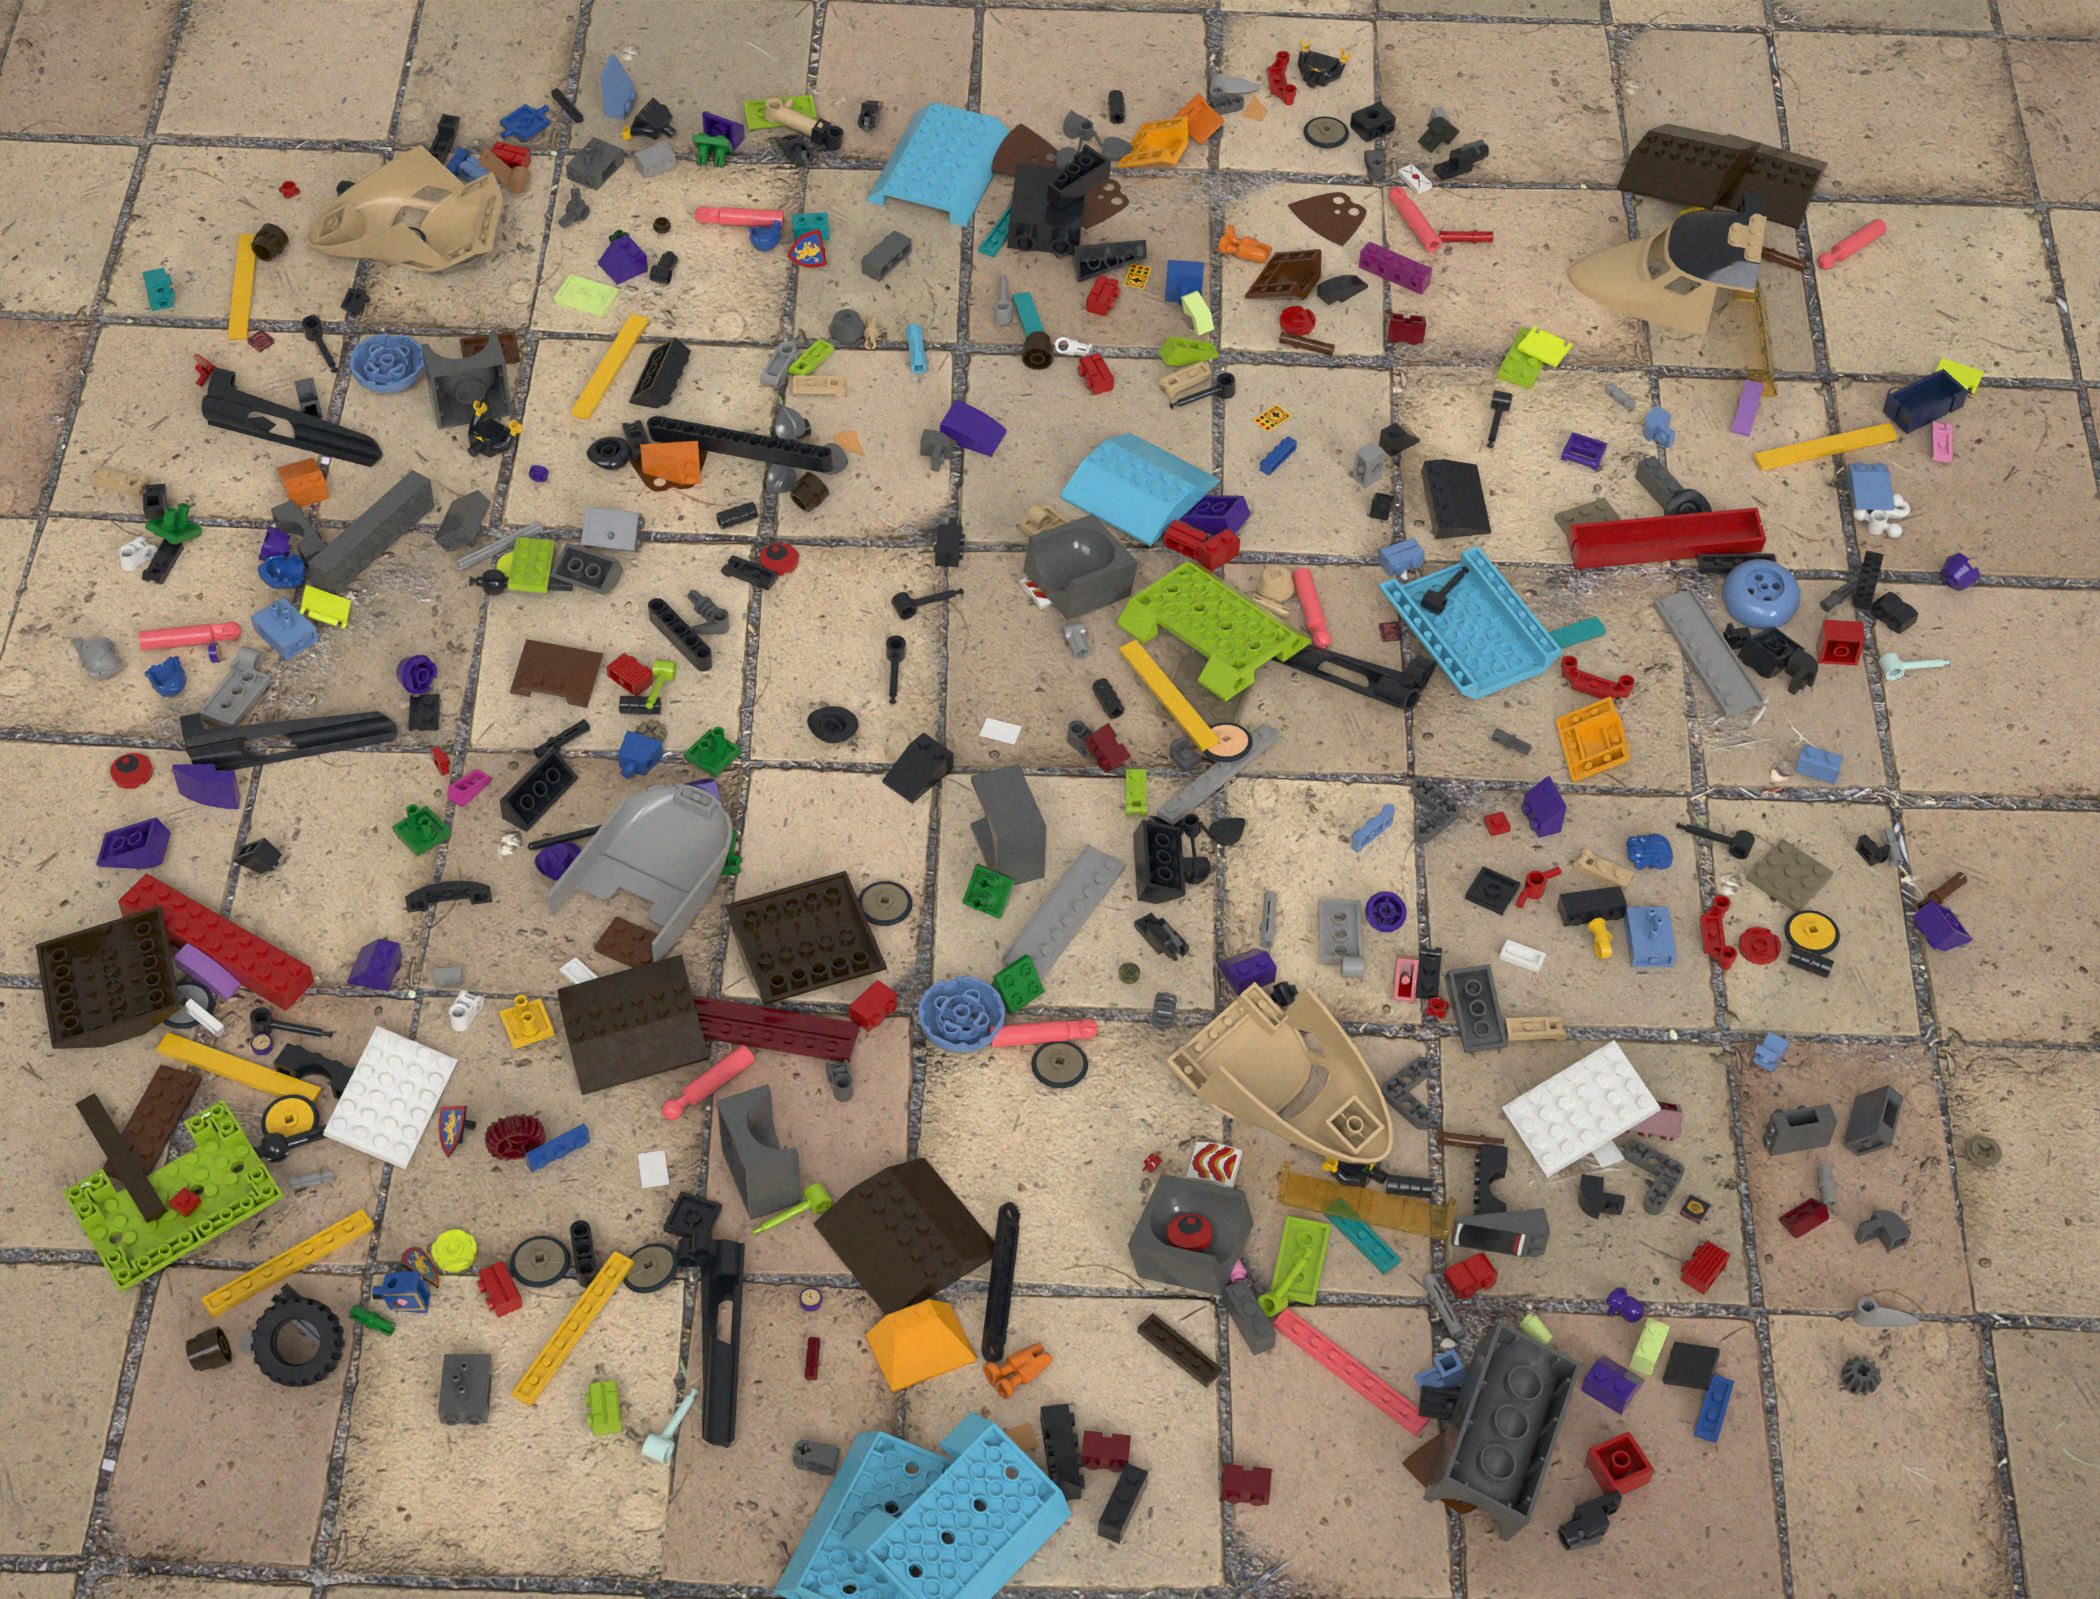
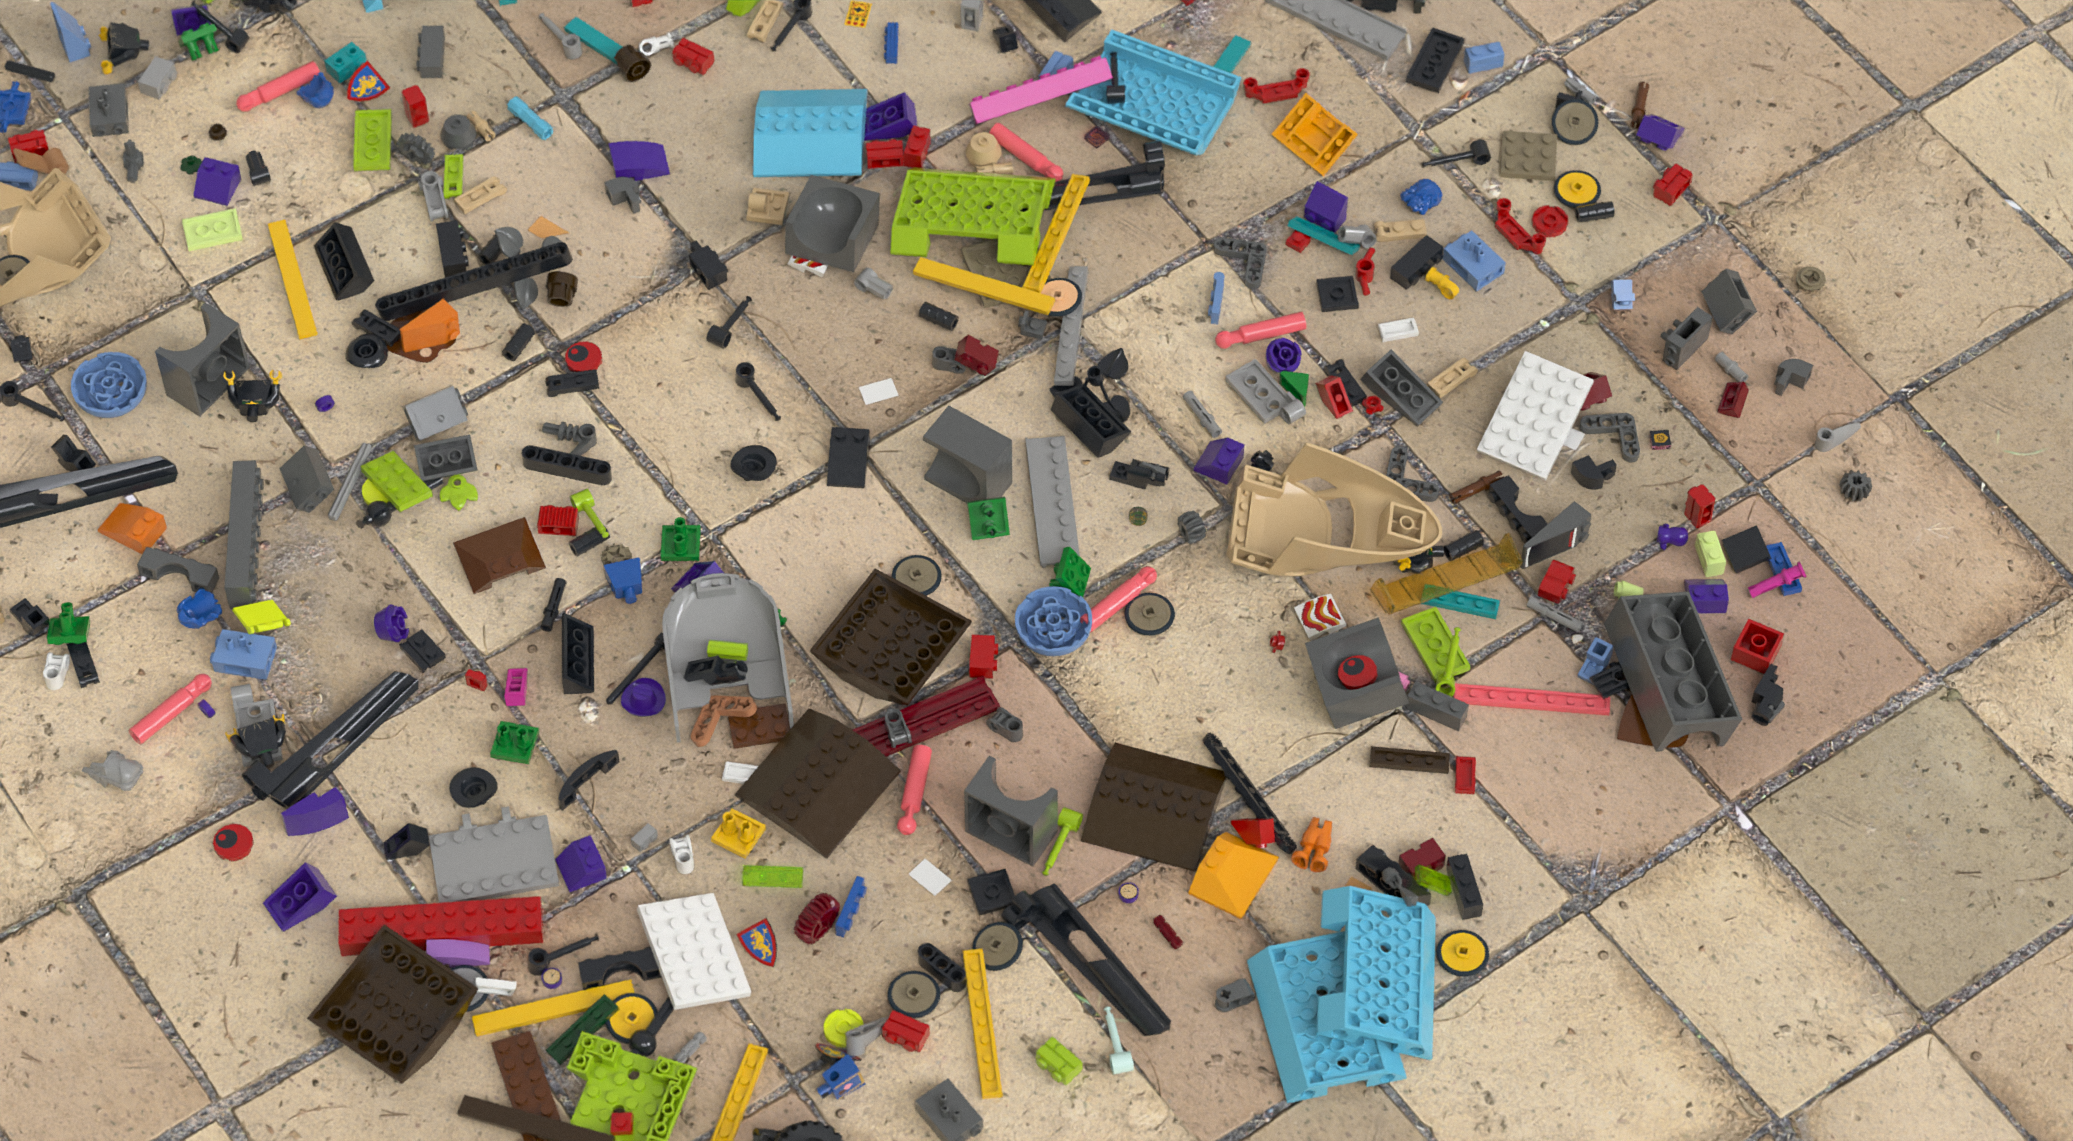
camera: 35 degrees left, 5 degrees up
(169, 678) = (190, 750): blue hair -> none
(224, 699) = (259, 739): none -> black torso
(248, 1100) = (589, 1022): none -> dark green tile
(275, 543) = (170, 592): dark purple cone -> none
(314, 915) = (493, 859): none -> light grey hinge
(350, 844) = (472, 787): none -> black hat
(372, 1320) = (835, 1114): green pin -> none
(457, 1267) = (863, 1035): none -> light grey piece
(508, 342) = (177, 324): reddish brown plate -> none
(521, 1079) = (773, 876): none -> clear neon green tile
(572, 605) = (458, 494): none -> lime plate
(613, 907) = (702, 732): none -> nougat beam
(631, 873) = (716, 671): none -> black plate
(660, 862) = (727, 650): none -> lime axle
(736, 1021) = (897, 731): none -> dark grey piece
(742, 164) = (235, 40): none -> black piece
(755, 410) = (452, 248): none -> black brick
(774, 296) = (372, 140): none -> lime plate
(797, 318) = (415, 148): none -> dark grey gear
(829, 287) = (415, 106): none -> red brick
(972, 1319) = (1255, 831): none -> red slope
(1048, 1442) = (1389, 876): none -> dark grey piece
(1065, 1551) = (1465, 942): none -> yellow wheel
(1096, 1476) = (1433, 880): none -> clear neon green tile
(1136, 792) = (1022, 377): lime plate -> none
(1222, 1400) = (1465, 775): none -> red tile
(1246, 1485) = (1532, 821): dark red brick -> none
(1271, 687) = (1056, 233): none -> yellow tile
(1368, 562) = (1039, 91): none -> brick
(1379, 947) = (1295, 383): none -> green slope
(1390, 880) = (1262, 330): none -> coral piece
(1511, 741) = (1256, 171): dark grey axle -> none
(1524, 832) = (1322, 235): none -> teal tile
(1554, 849) = (1358, 235): none -> light grey piece
(1675, 1293) = (1699, 505): none -> red brick
(1704, 1267) = (1700, 472): red brick -> none
(1705, 1416) = (1785, 577): none -> dark pink pin
(1770, 741) = (1435, 60): none -> black plate
(1872, 877) = (1576, 110): none -> dark tan wheel
(1912, 982) = (1672, 184): none -> red brick

